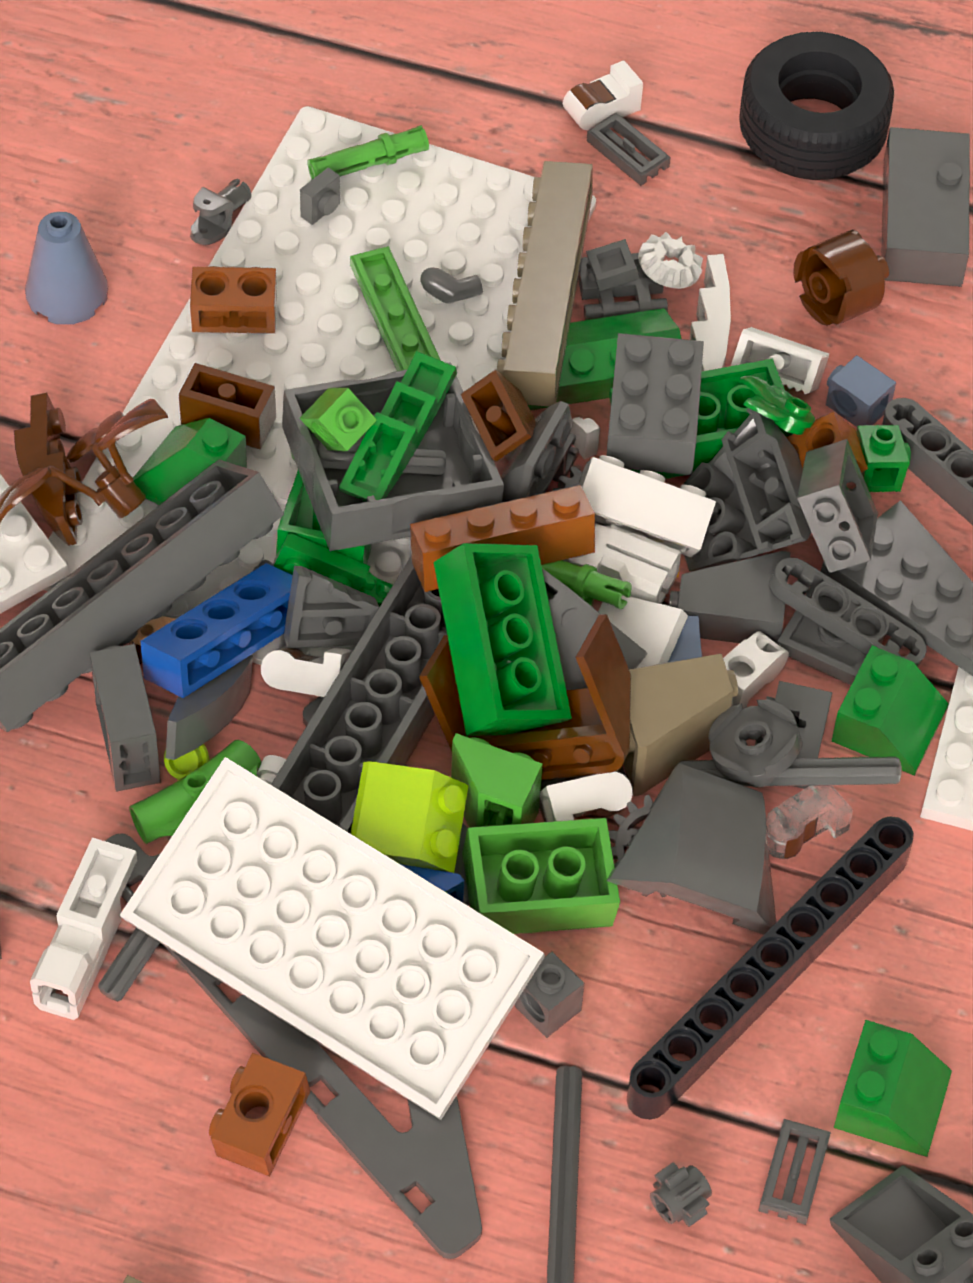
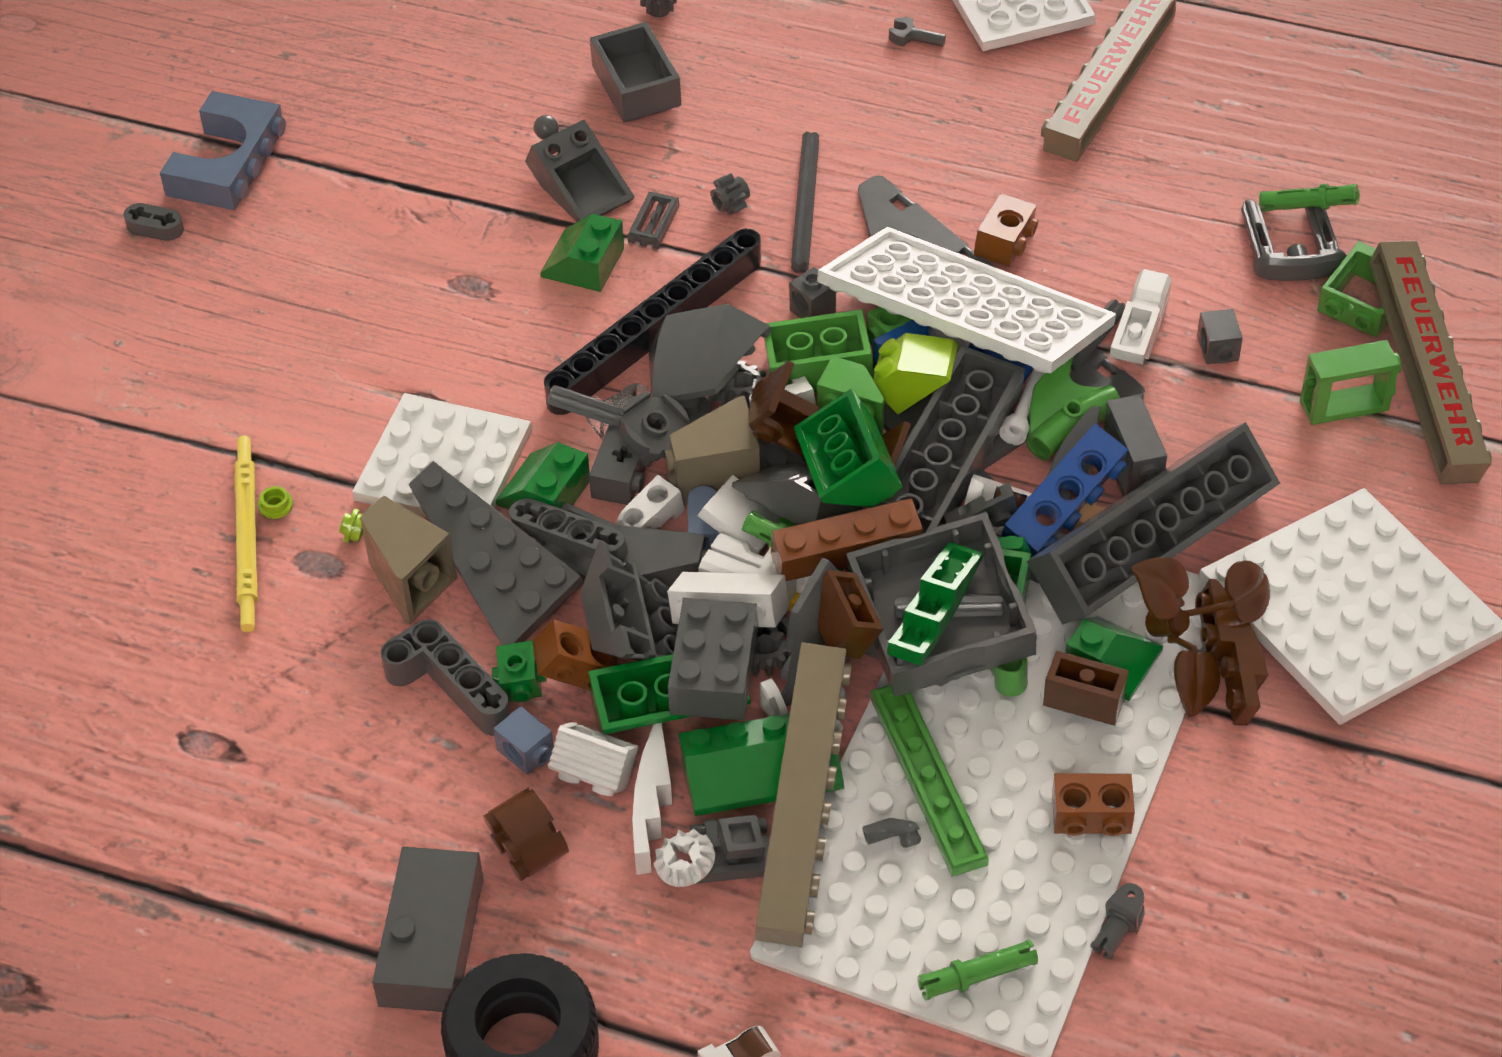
camera: 175 degrees left, 5 degrees down
(64, 272) = (1254, 838): sand blue cone -> none
(320, 196) = (1021, 913): dark grey plate -> none
(338, 419) = (987, 585): bright green brick -> none
(623, 151) = (700, 1019): dark grey tile -> none
(779, 405) = (610, 662): green plate -> none
(838, 516) = (567, 578): dark grey window -> none

